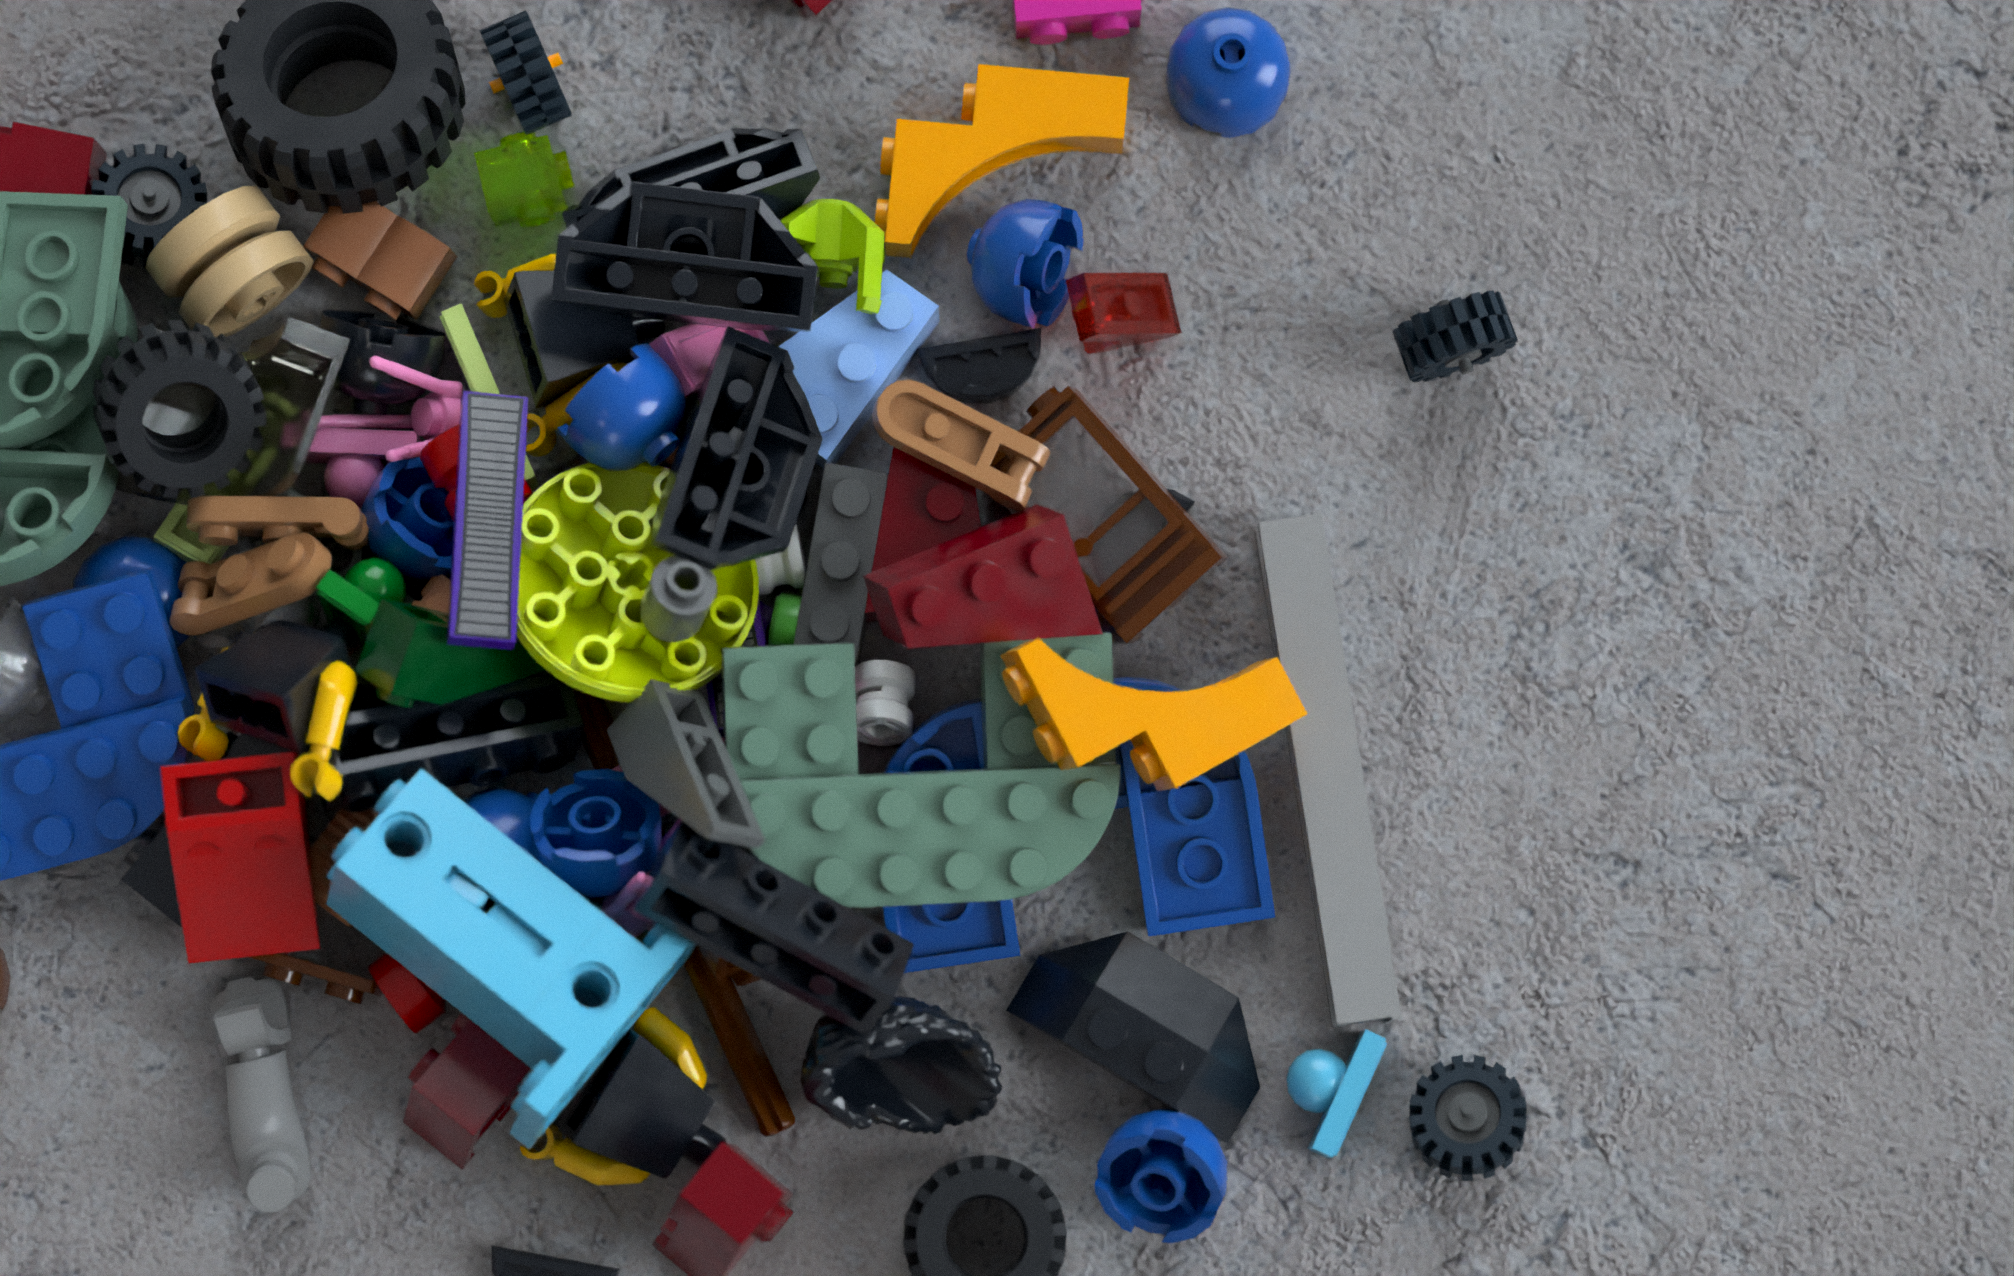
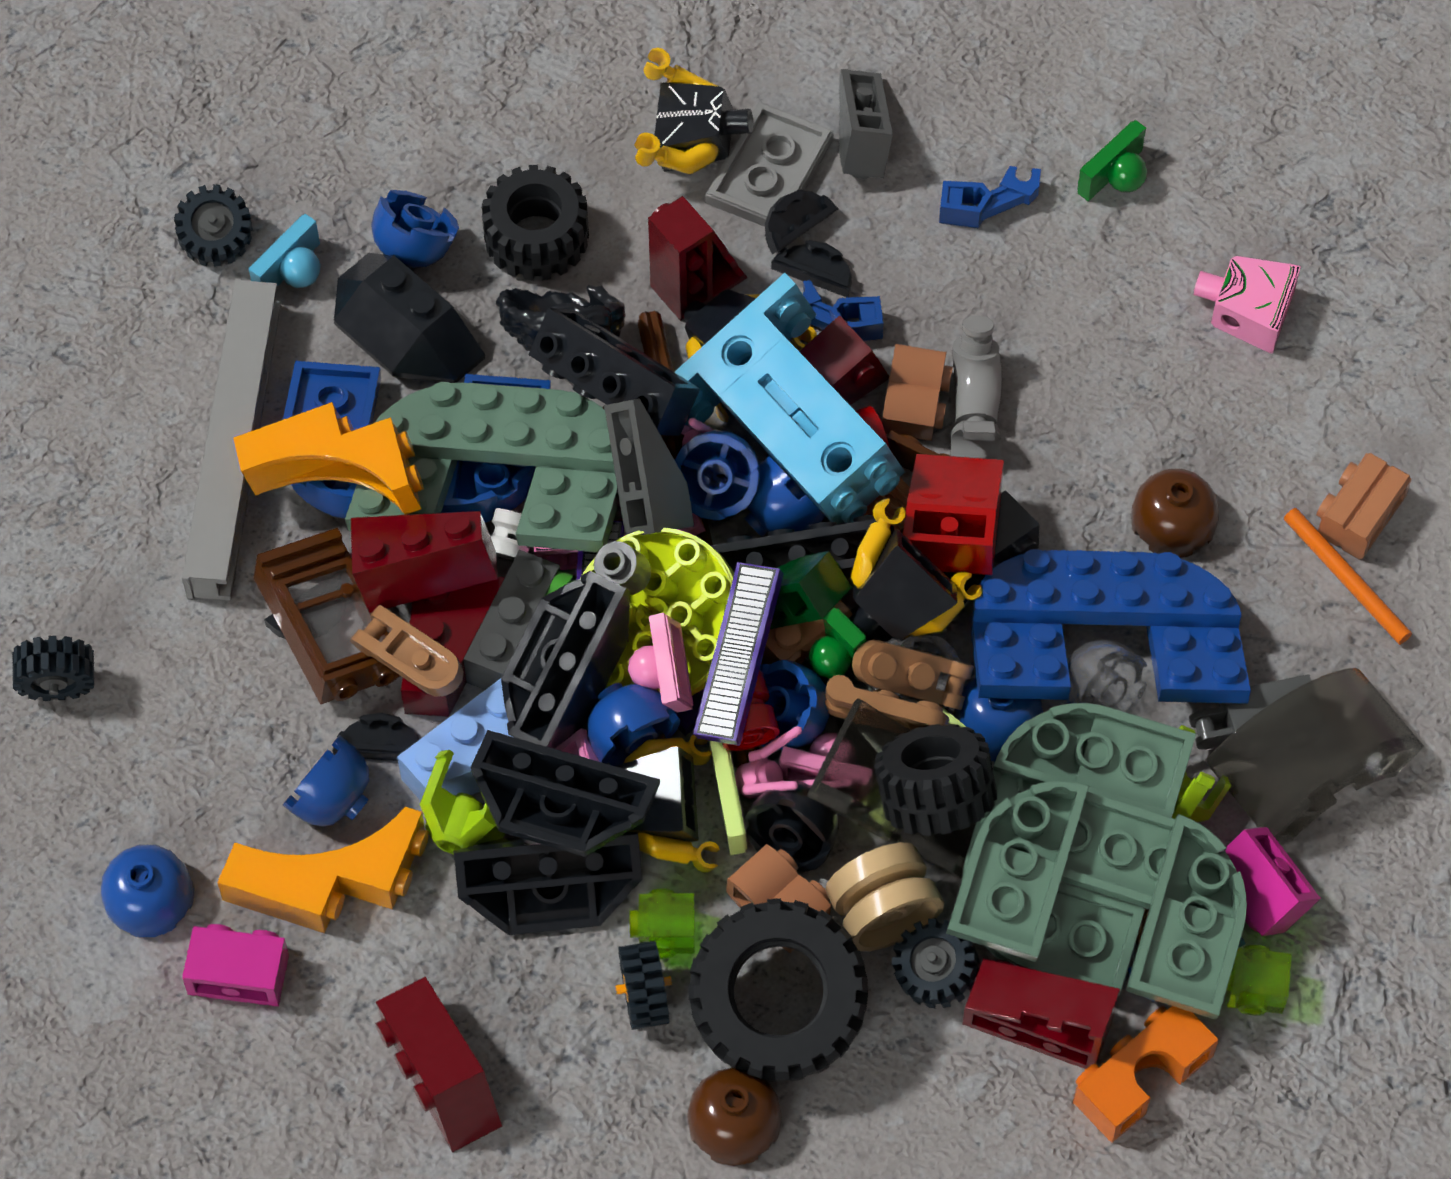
camera: 165 degrees left, 20 degrees down
(354, 1085) = (914, 392): none -> nougat brick
(541, 1197) = (865, 308): none -> blue piece
(589, 481) = (664, 664): none -> bright pink tile
(1122, 309) = (274, 744): clear red slope -> none

